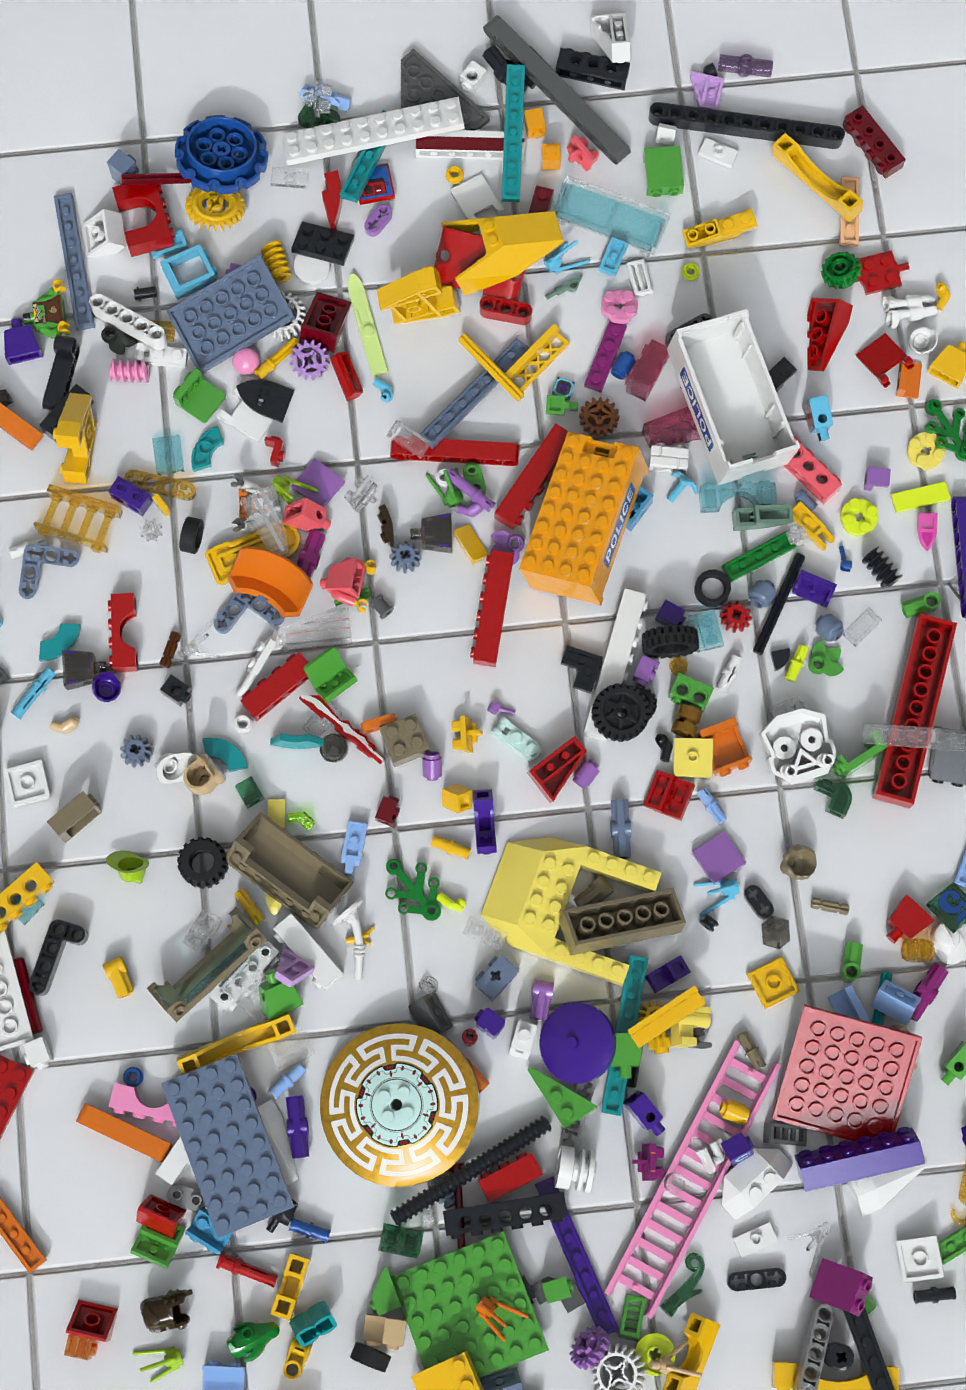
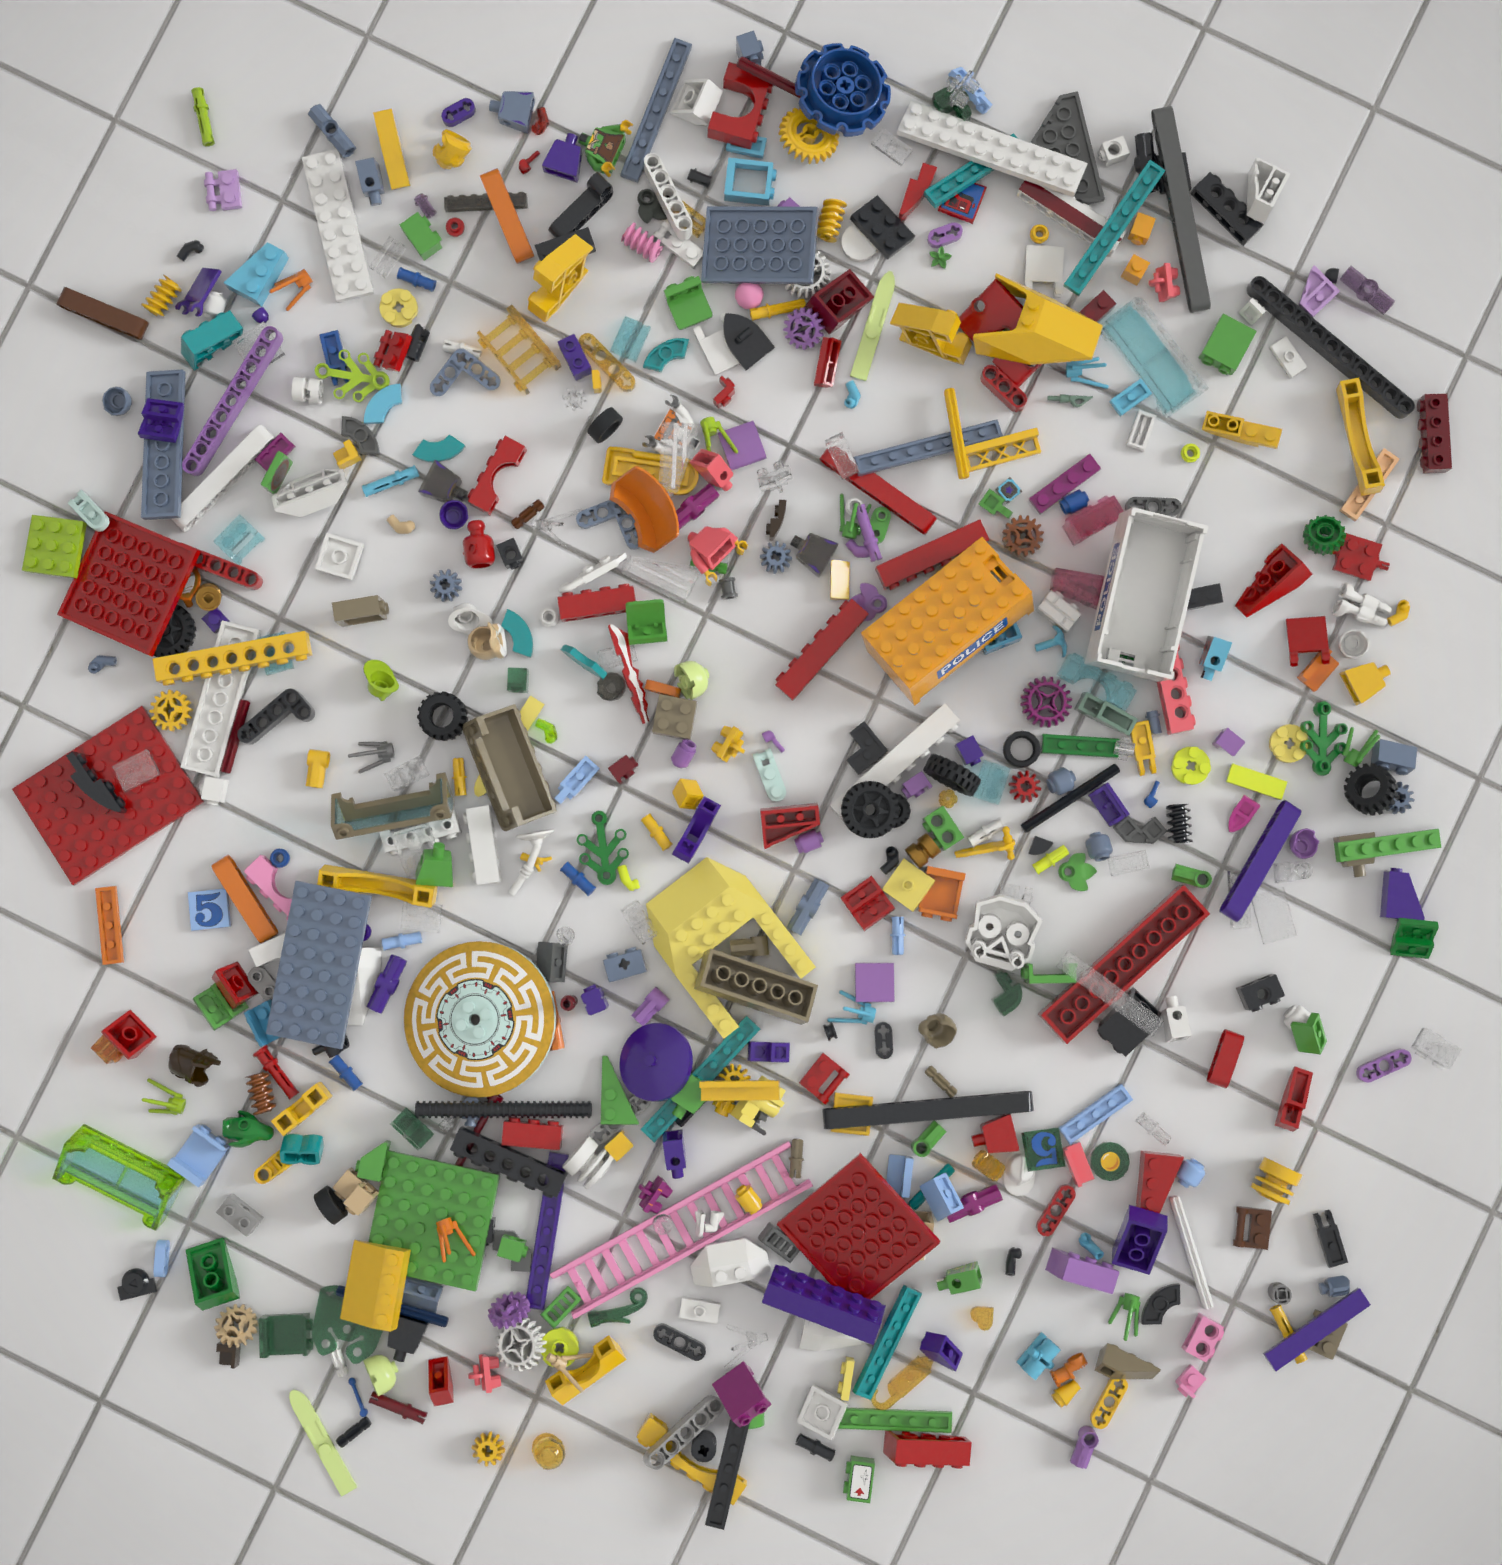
camera: 35 degrees right, 10 degrees up
(96, 1163) = (209, 909): none -> tile
(144, 700) = (478, 546): none -> red piece
(169, 924) = (385, 751): none -> flat silver plant
(244, 1297) = (260, 1093): none -> dark orange piece
(292, 968) = (459, 853): lavender wing -> none
(385, 240) = (940, 258): none -> bright green plant
(399, 699) = (692, 679): none -> yellowish green cylinder
(408, 929) = (578, 878): none -> blue pin
(523, 1038) = (616, 1028): white torso -> none
(592, 1138) = (618, 1146): none -> yellow panel
(623, 298) = (1113, 439): bright pink plate -> none
(714, 539) = (1052, 708): none -> magenta gear
(722, 966) = (818, 1075): none -> red plate
(738, 1148) = (731, 1231): dark purple brick -> none
(752, 673) = (1006, 844): none -> yellow piece
(775, 932) = (880, 1074): clear smoke panel -> none
(834, 936) = (928, 1110): none -> black beam
(848, 601) = (1147, 834): none -> dark grey tile
(924, 1223) = (847, 1370): none -> light yellow plate
(934, 1160) = (887, 1342): none -> teal plate

